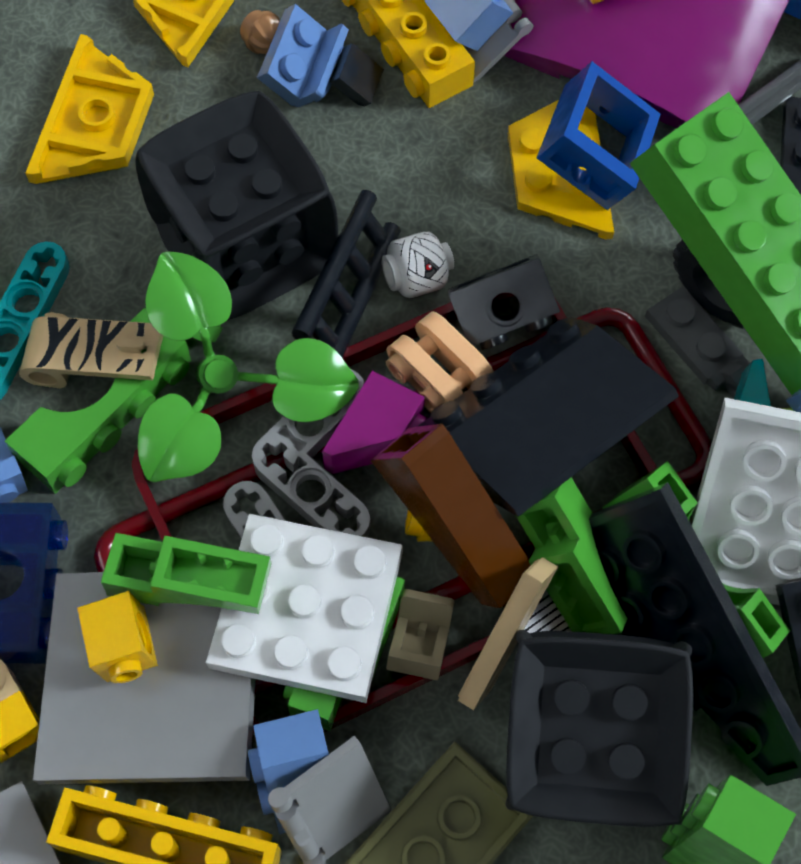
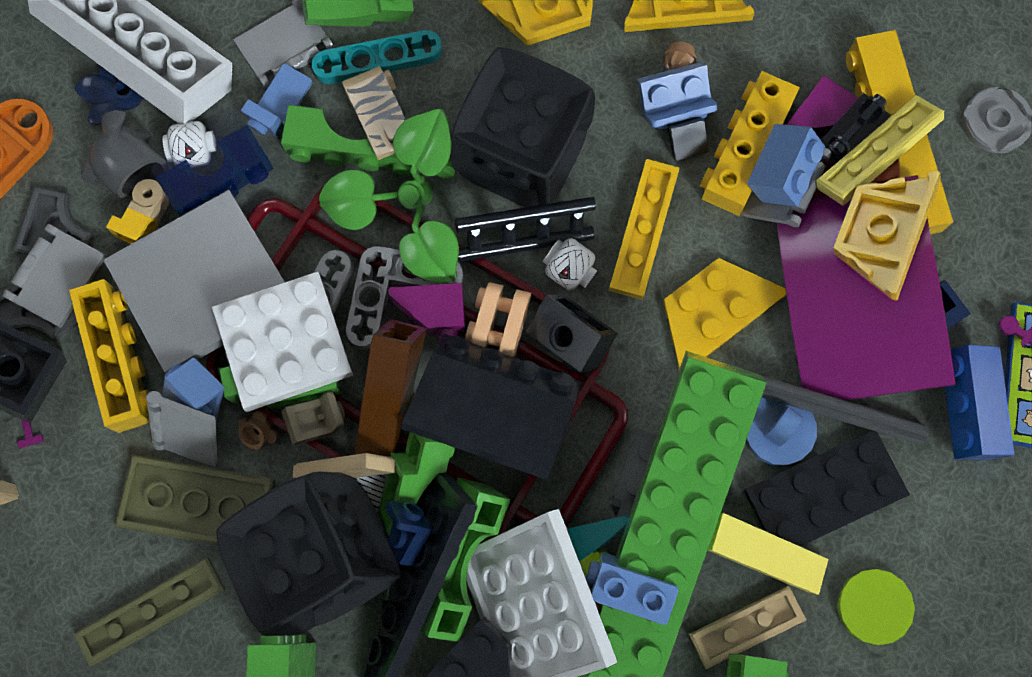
camera: 60 degrees right, 10 degrees up
(117, 638) = (200, 249): yellow brick -> none
(186, 573) = (254, 261): bright green slope -> none
(392, 733) = (256, 431): none -> medium nougat plate
(427, 175) = (644, 229): none -> yellow plate
(567, 148) = (708, 325): blue window -> none
(636, 598) = (408, 532): none -> dark blue bracket

